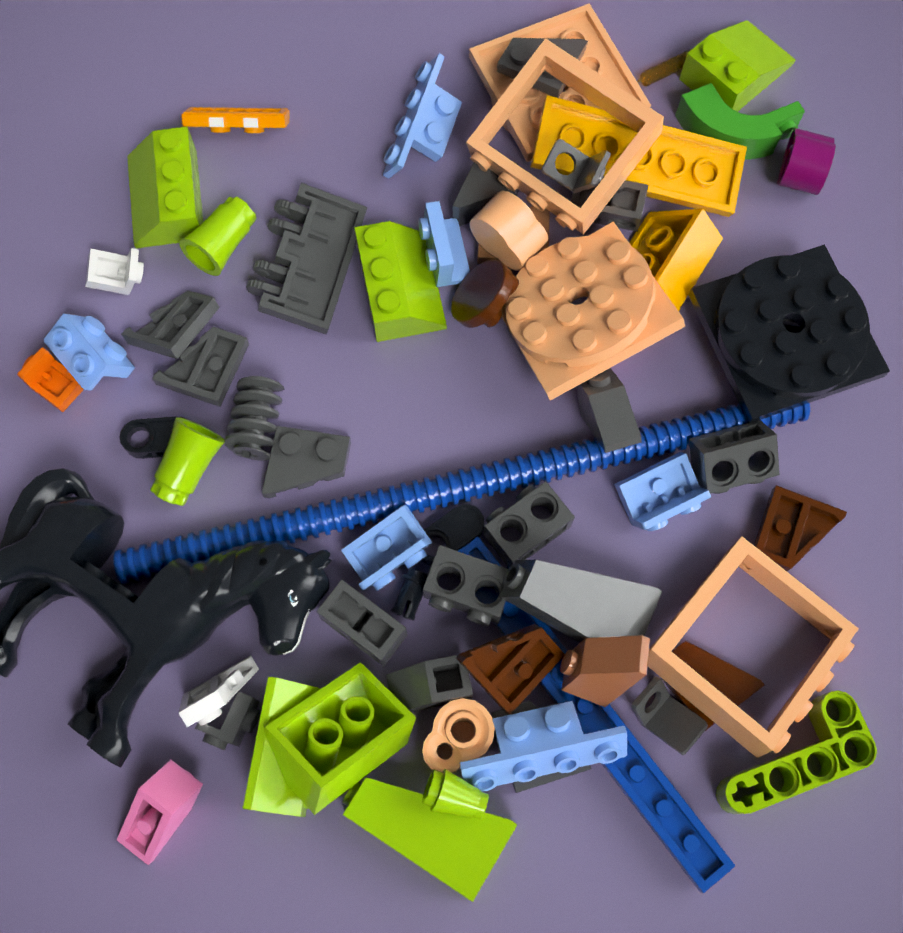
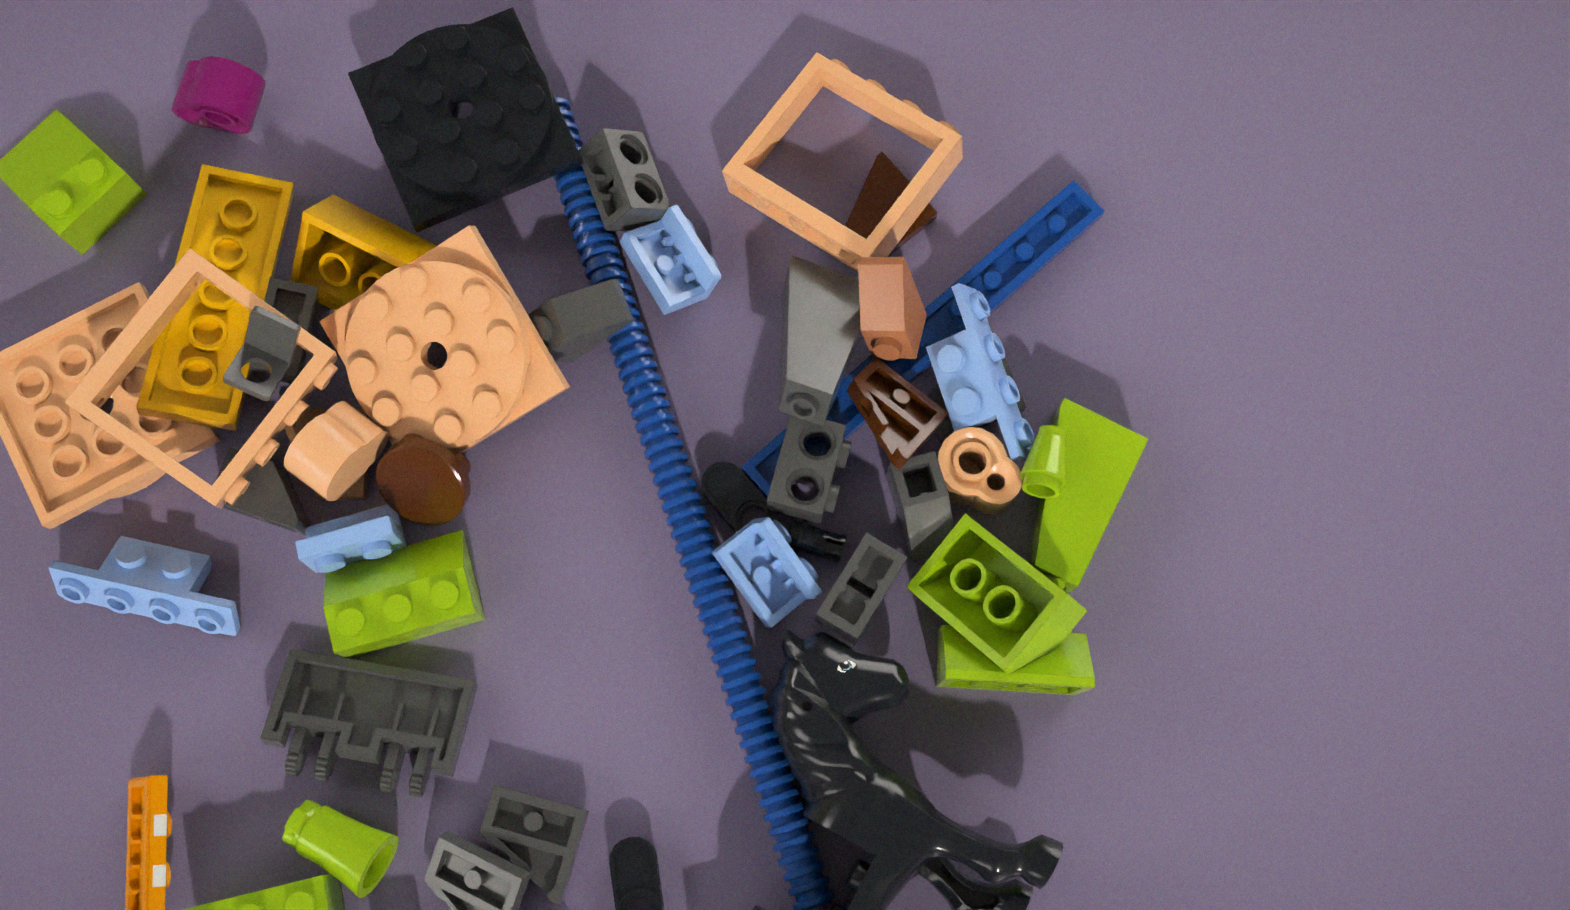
camera: 95 degrees left, 5 degrees up
(158, 811) = (1096, 801): bright pink slope -> none
(184, 461) = (672, 836): lime plant -> none
(206, 700) = (959, 752): white wing -> none
(239, 720) = (982, 721): dark grey bracket -> none
(251, 417) = (607, 759): dark grey piece -> none
(303, 458) = (654, 691): dark grey wing -> none
(522, 49) = (62, 436): dark grey wing -> none
(534, 532) = (731, 405): dark grey brick -> none
(663, 69) = (66, 266): clear yellow piece -> none
(668, 717) = (932, 246): dark grey bracket -> none
(708, 115) = (160, 206): bright green arch -> none
(794, 526) = (700, 120): reddish brown wing -> none
(794, 766) = (978, 119): lime beam -> none

